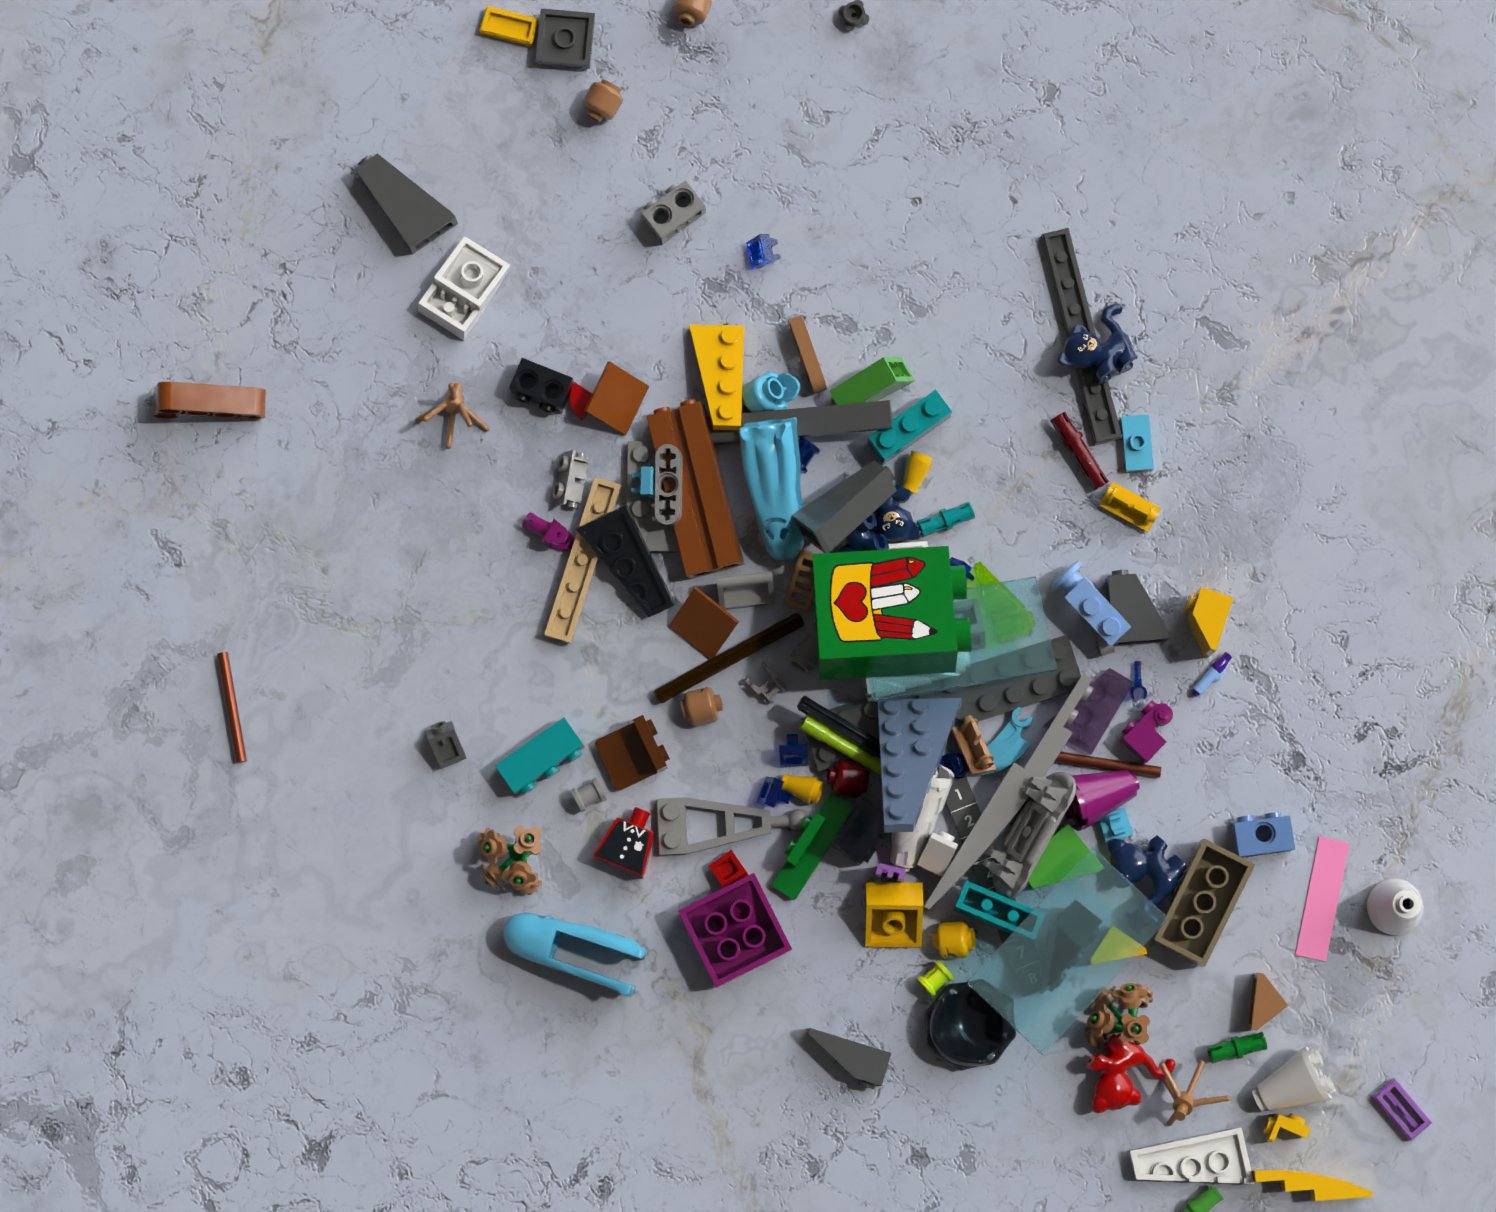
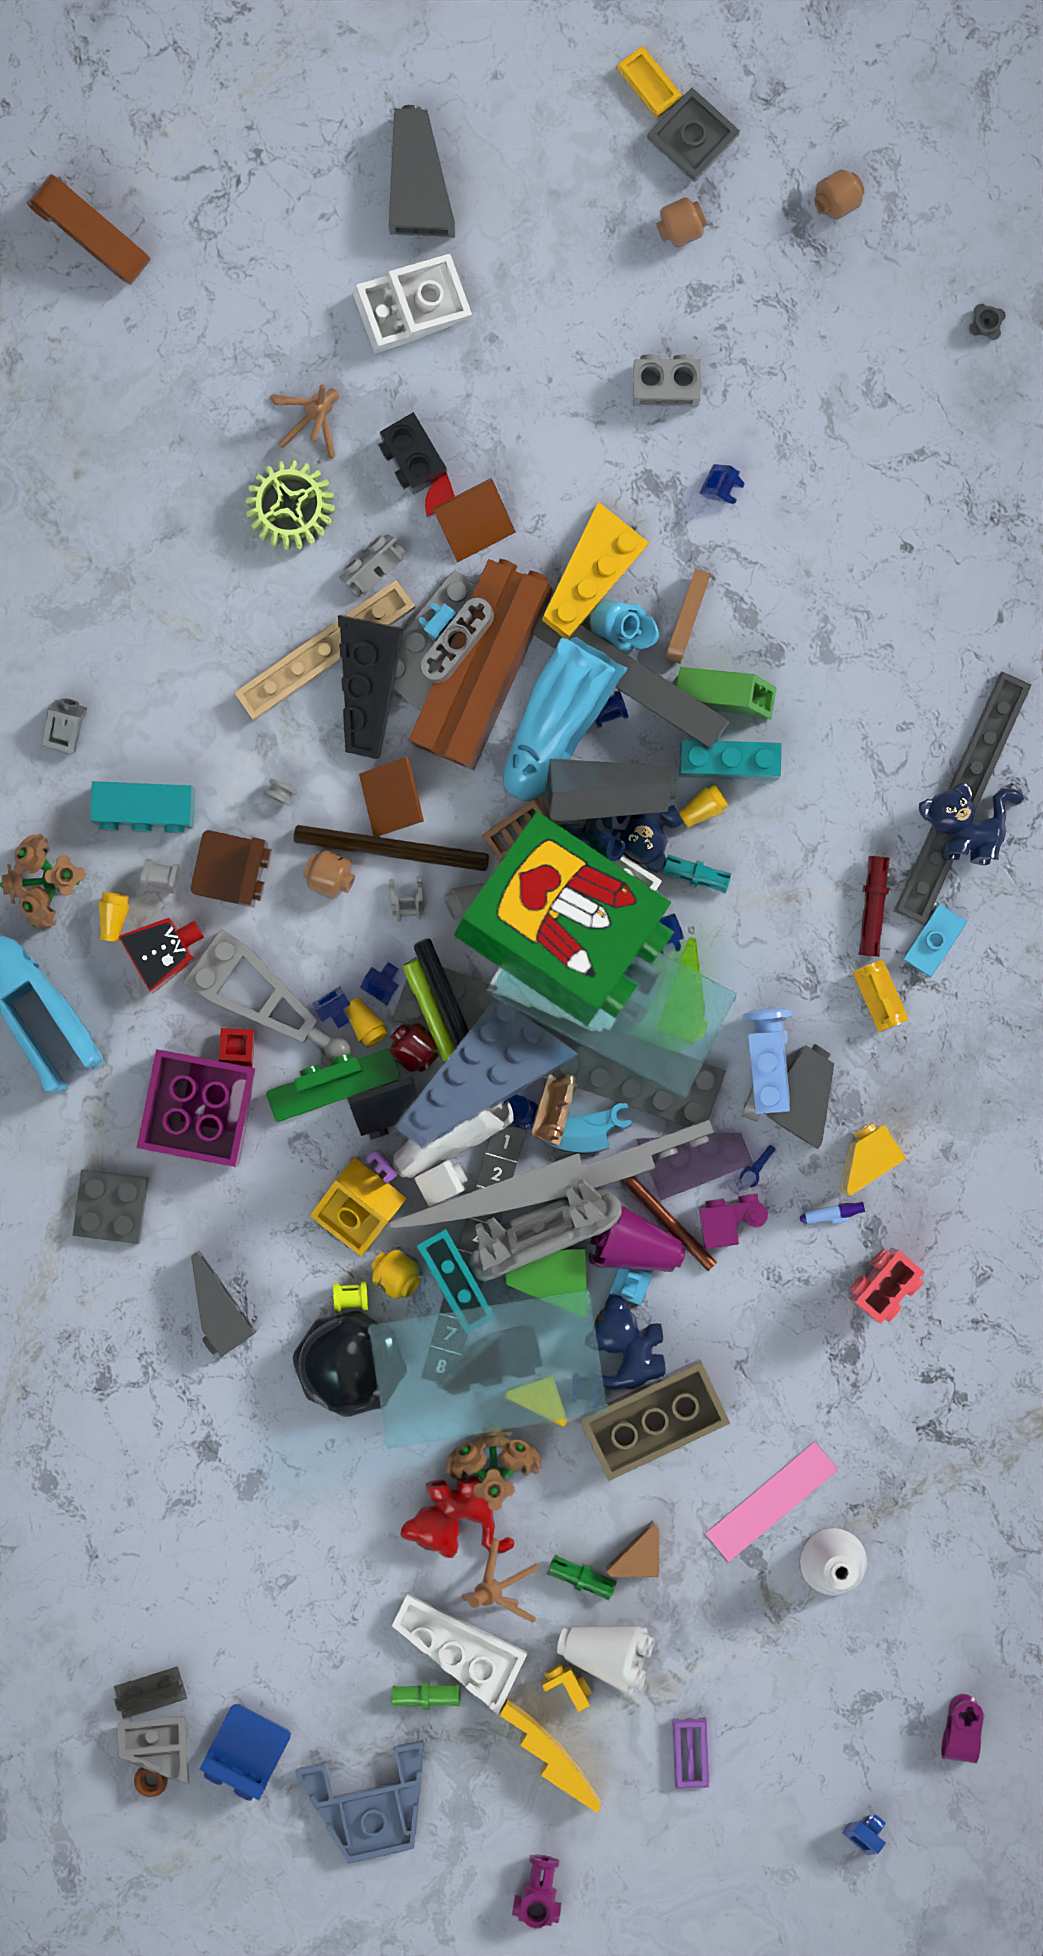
camera: 35 degrees right, 5 degrees up
(480, 494) = (302, 496): none -> yellowish green gear
(552, 533) = (315, 602): magenta piece -> none
(576, 845) = (112, 915): none -> yellow cone
(626, 677) = (280, 792): none -> light grey bush
(726, 1044) = (110, 1206): none -> dark grey plate
(746, 590) = (454, 796): light grey tile -> none
(1279, 839) = (771, 1417): medium blue brick -> none
(1285, 693) = (886, 1285): none -> coral brick

